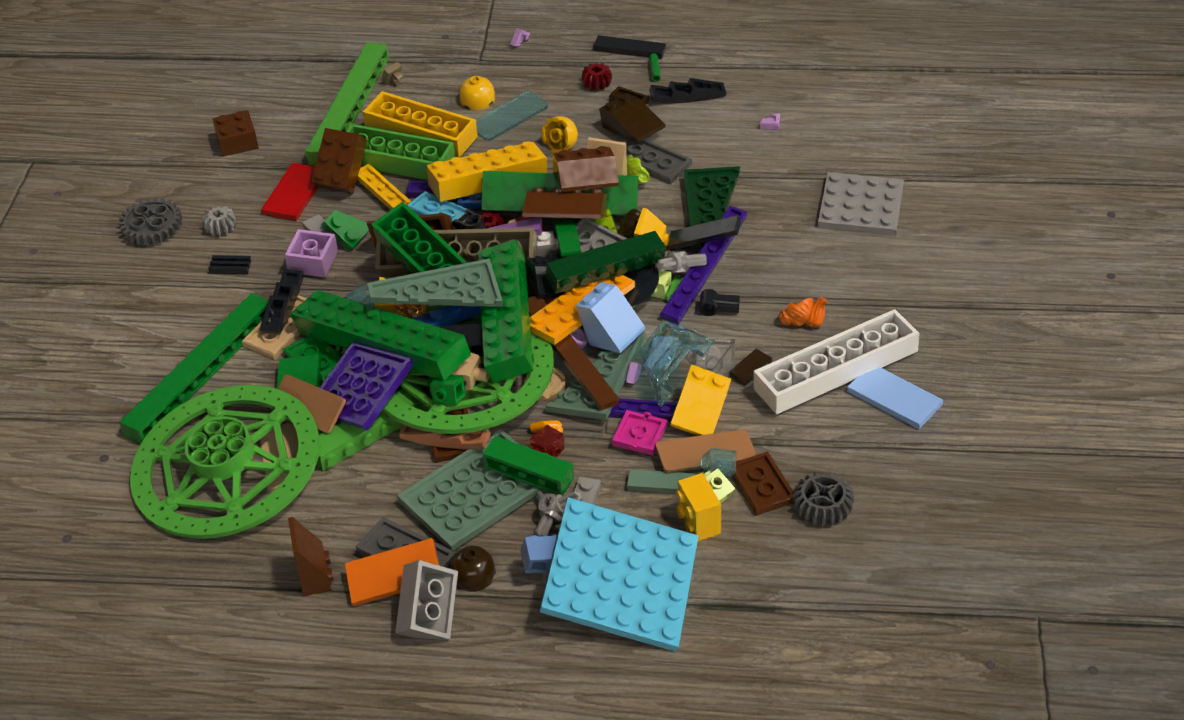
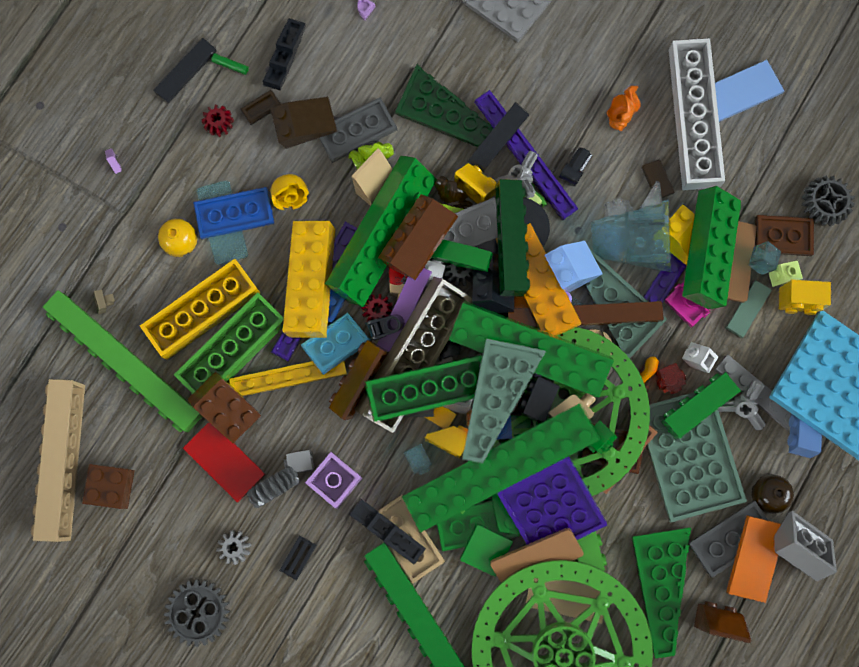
camera: 65 degrees left, 35 degrees up
(252, 91) = (58, 461): none -> tan brick
(283, 212) = (273, 487): none -> dark grey gear
(343, 509) = (662, 577): none -> green wing
(346, 228) = (315, 436): green wing -> none
(518, 115) = (233, 213): none -> blue tile
(581, 453) = (700, 357): none -> white brick
(585, 169) = (397, 200): reddish brown slope -> none
(633, 372) = (622, 271): lavender tile -> none
(698, 411) = (712, 248): none -> green brick

